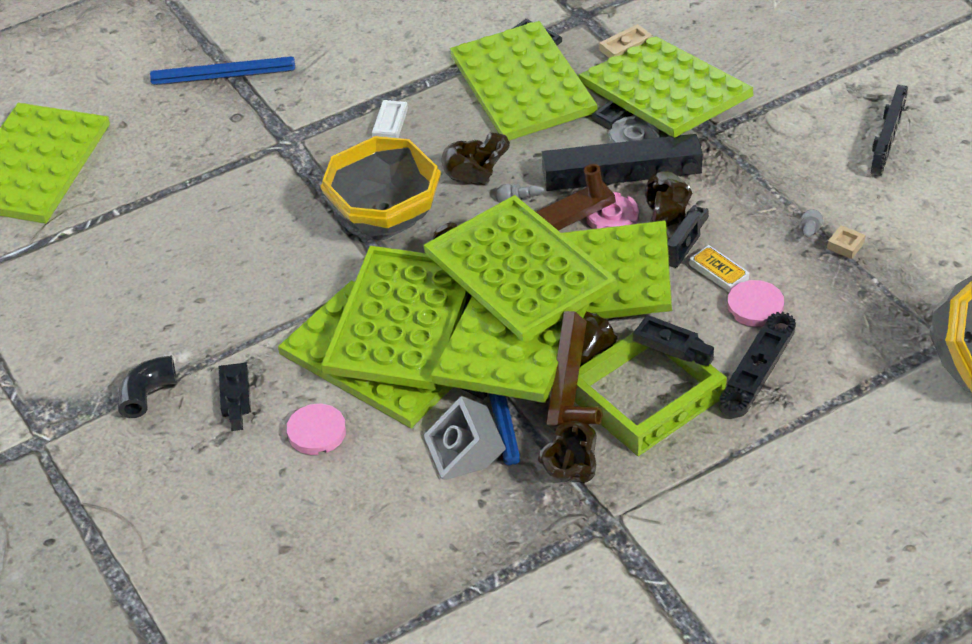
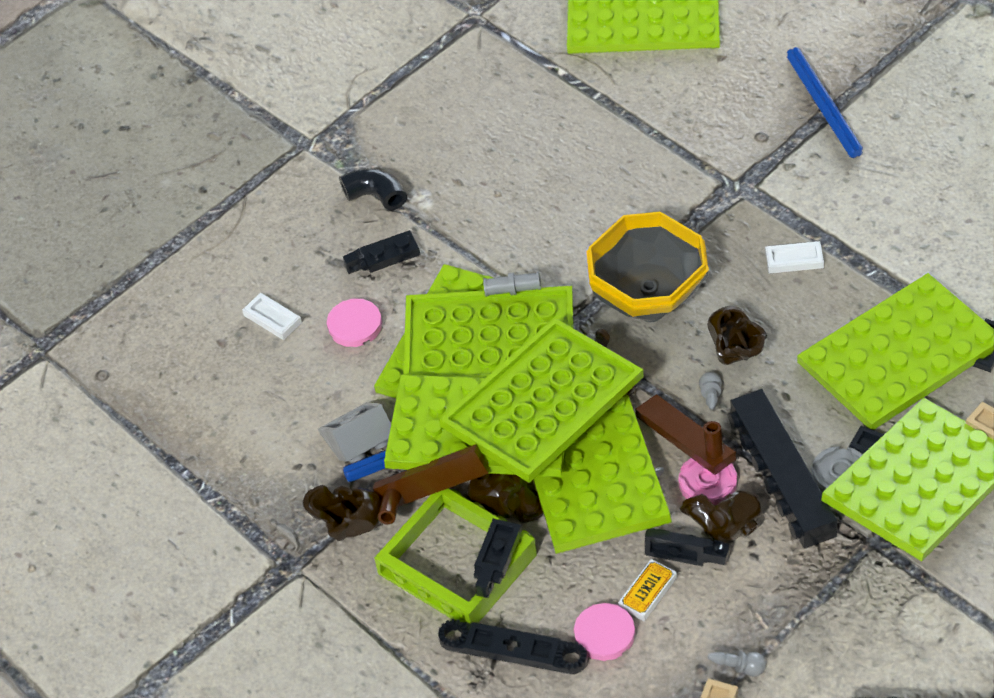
camera: 80 degrees right, 5 degrees up
(272, 497) = (272, 316): none -> white tile
(354, 278) = (512, 284): none -> light grey pin

